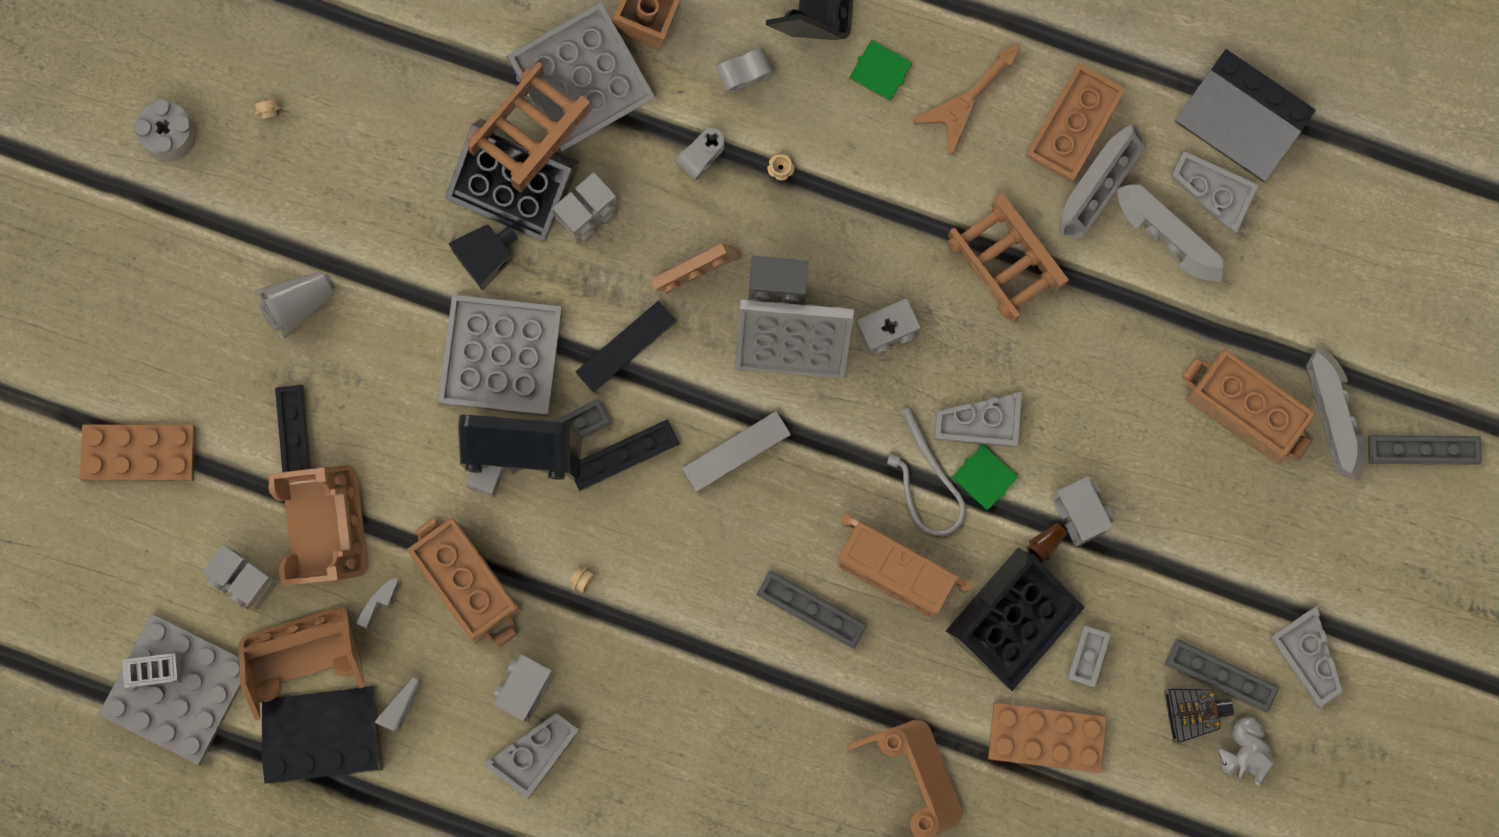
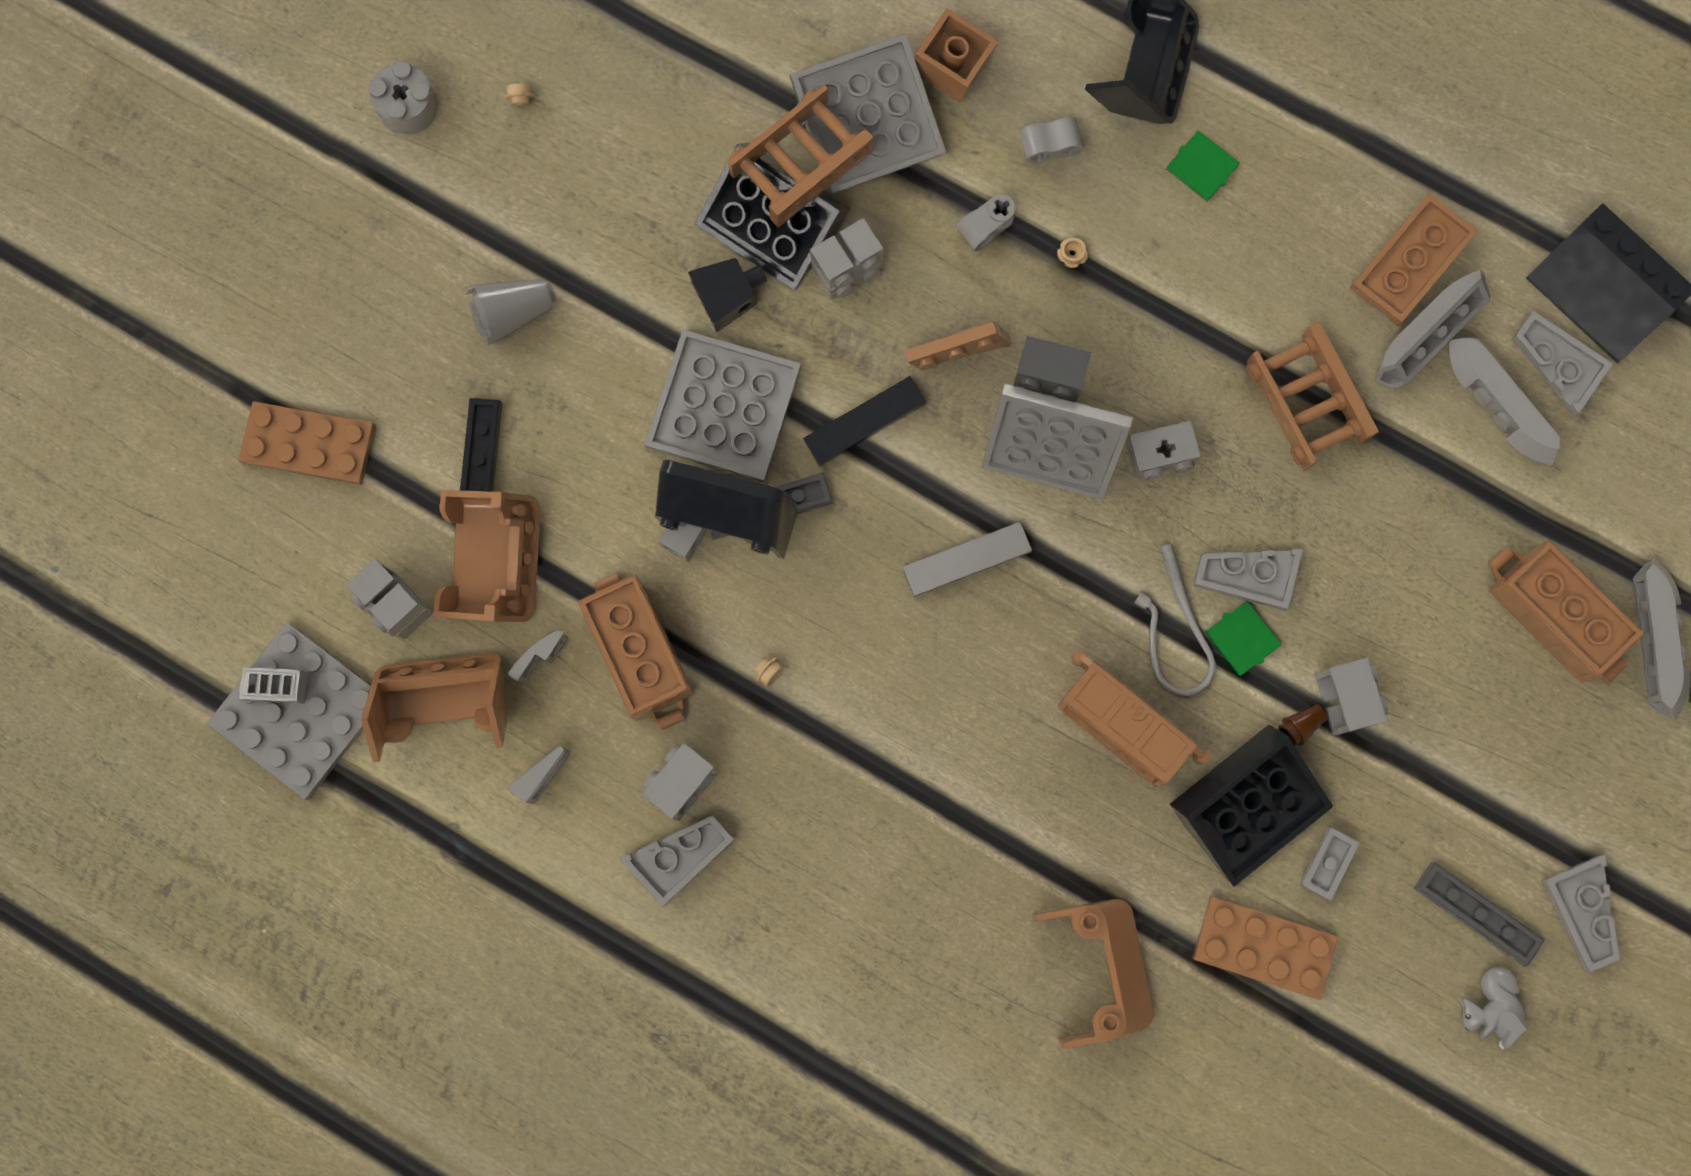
camera: 20 degrees right, 0 degrees up
(320, 735) = (445, 792): black slope -> none
(625, 454) = (843, 540): black tile -> none
(811, 610) = (1021, 752): dark grey tile -> none
(956, 111) = (1280, 224): medium nougat piece -> none
(1194, 712) = (1442, 951): torso -> none

